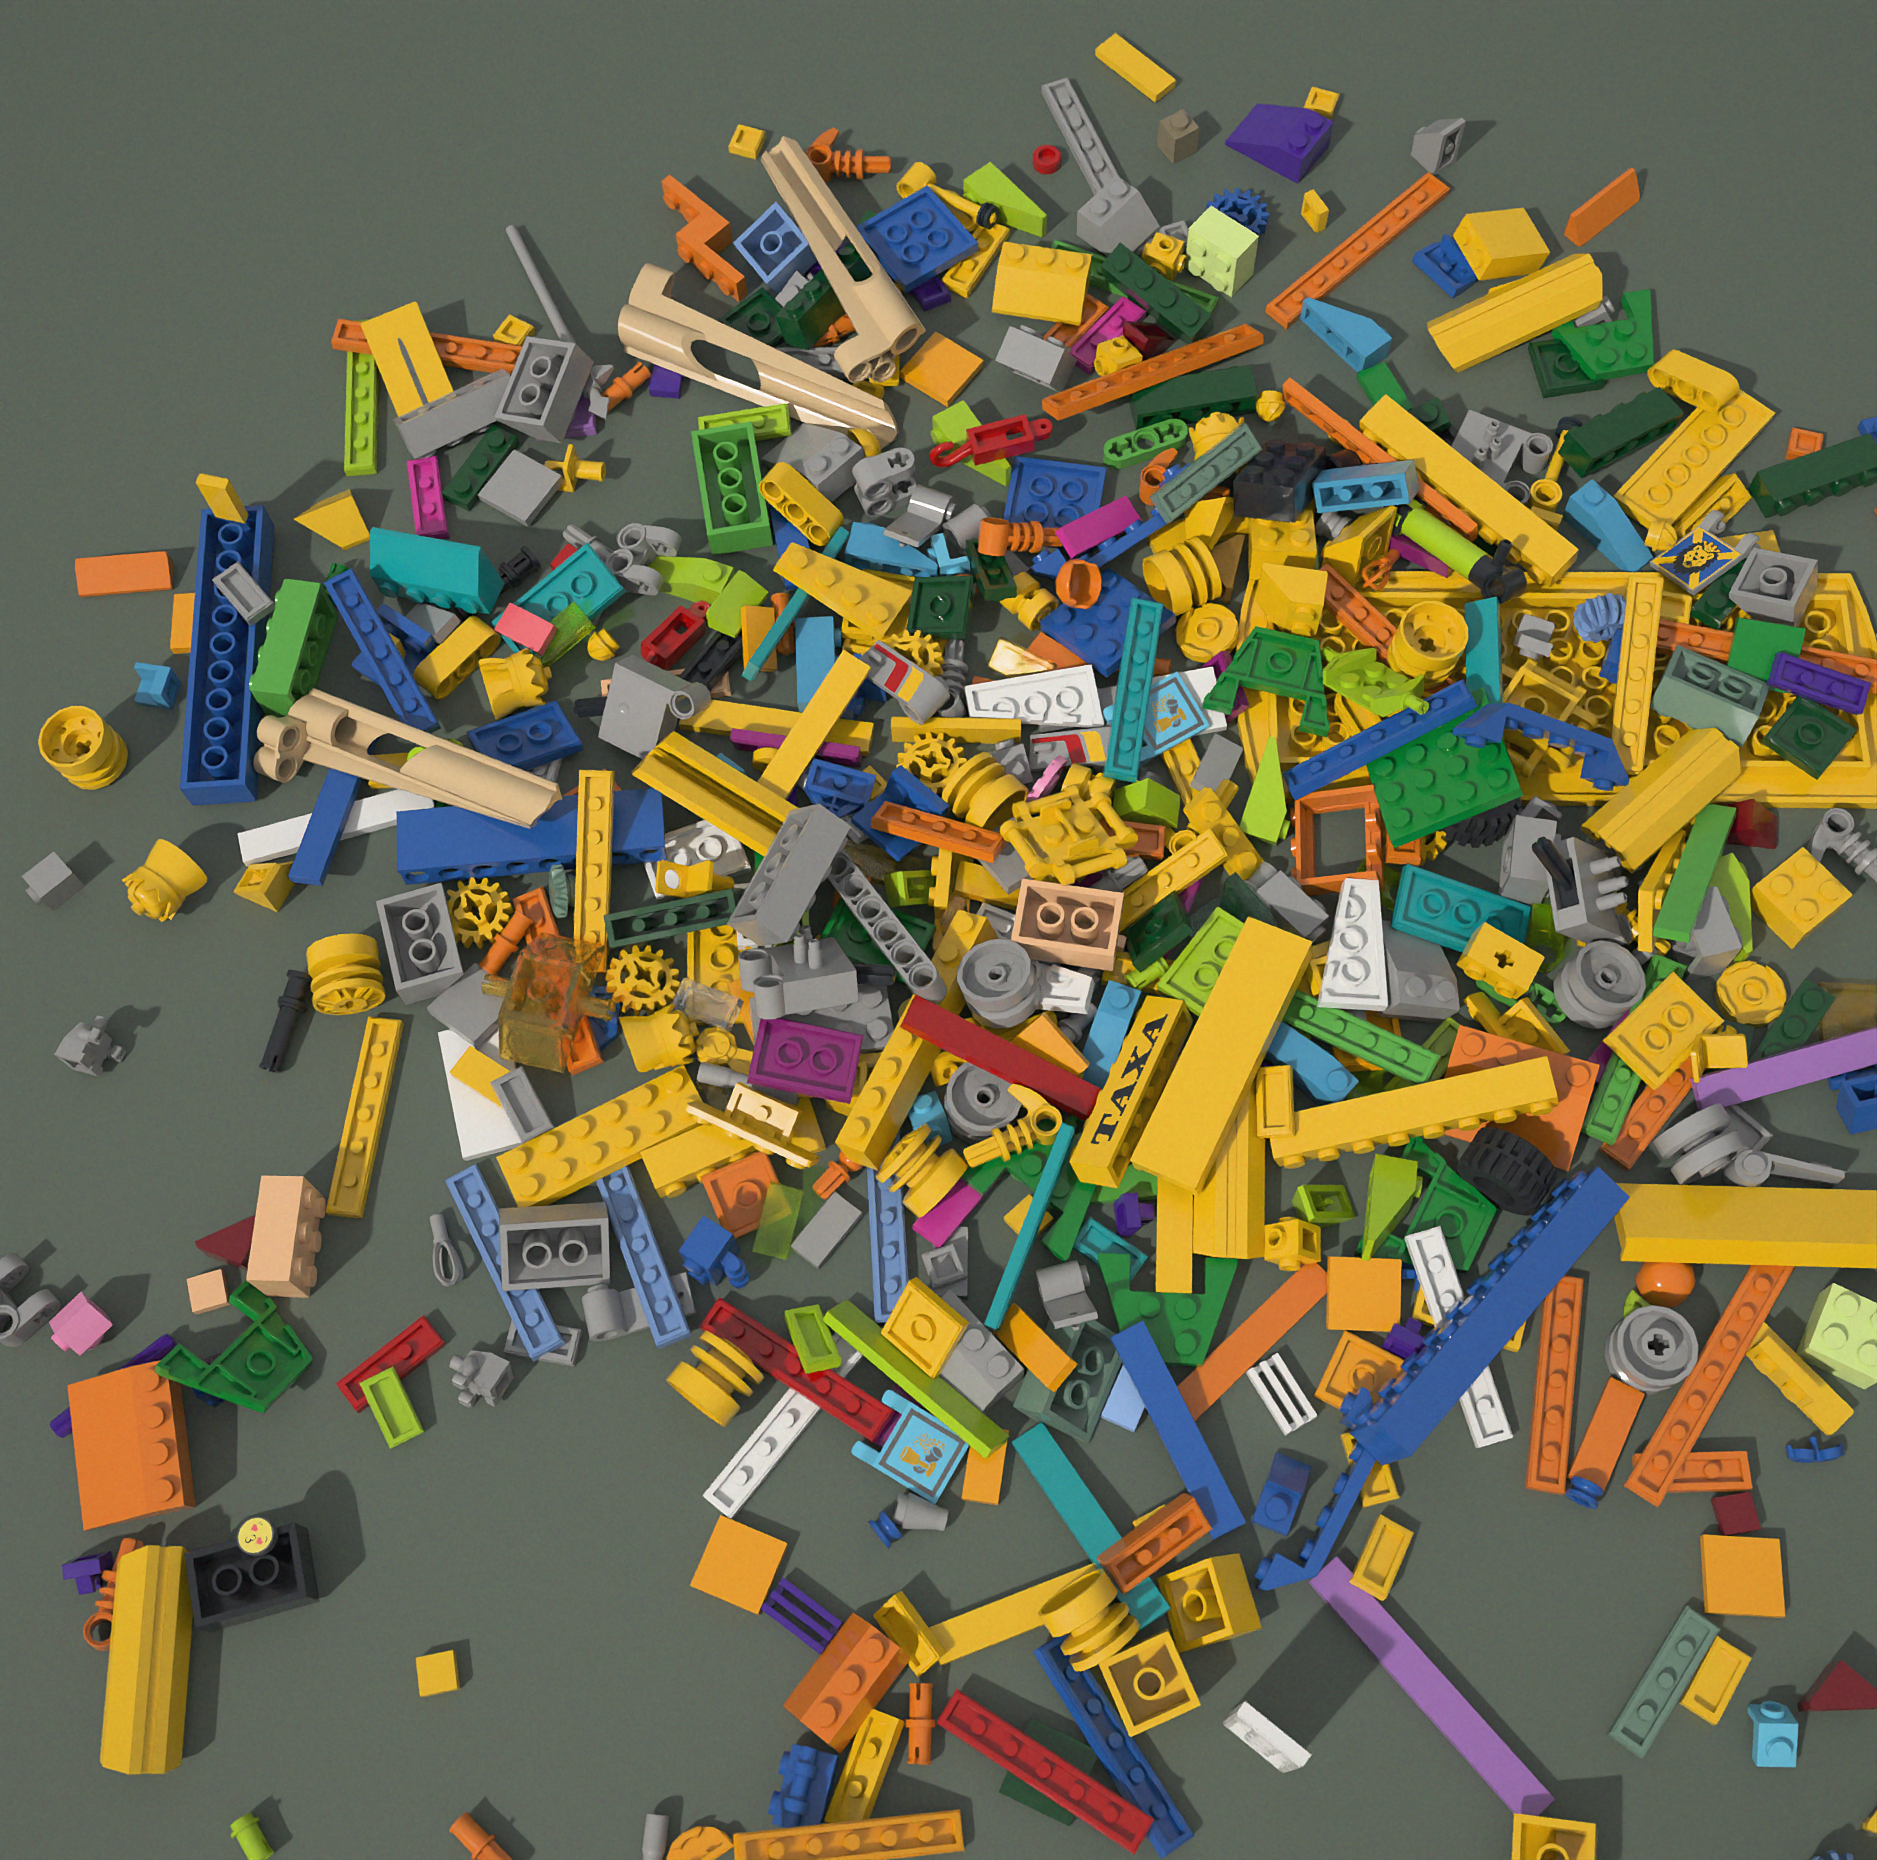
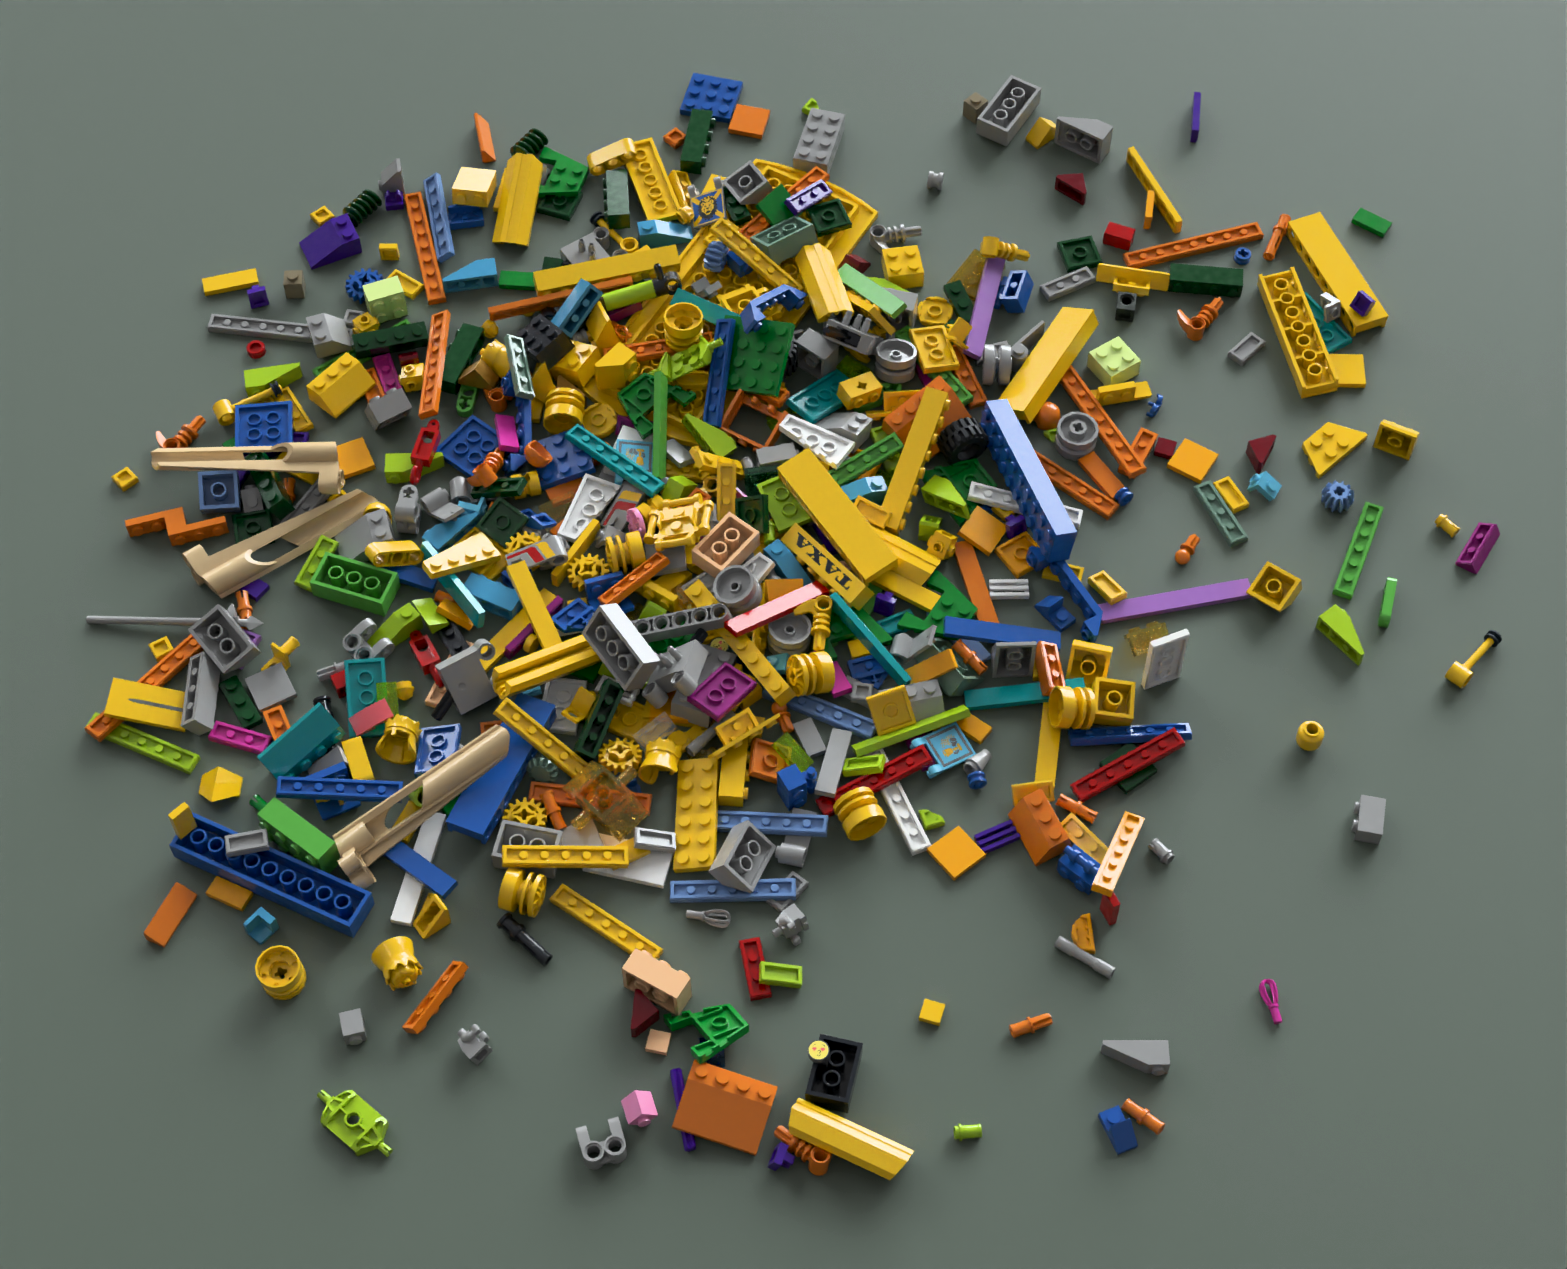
camera: 65 degrees left, 10 degrees down
(133, 957) = (430, 1004): none -> orange plate
(419, 999) = (564, 856): none -> yellow tile
(470, 524) = (276, 721): none -> orange plate
(780, 1492) = (930, 820): none -> lime tile
(795, 1289) = (833, 763): none -> light grey tile
(976, 649) = (538, 521): none -> blue slope
(990, 1252) = (867, 670): none -> blue slope
(1102, 1399) = (969, 657): none -> orange pin
(1128, 108) = (257, 296): none -> dark purple tile
(1138, 1468) = (1013, 659): none -> light grey slope
(1171, 439) = (479, 376): none -> pearl gold slope
(1233, 715) = (660, 425): none -> bright green tile
(1277, 262) = (410, 286): none -> yellow tile
(1321, 1679) = (1140, 639): none -> clear yellow bracket
(1364, 135) = (362, 206): none -> dark green piece
(1410, 167) = (394, 200): none -> dark purple tile
(1419, 235) = (438, 217): none -> medium blue tile
(1527, 1659) = (1187, 549): none -> orange axle
(1632, 267) = (530, 143): none -> dark green piece

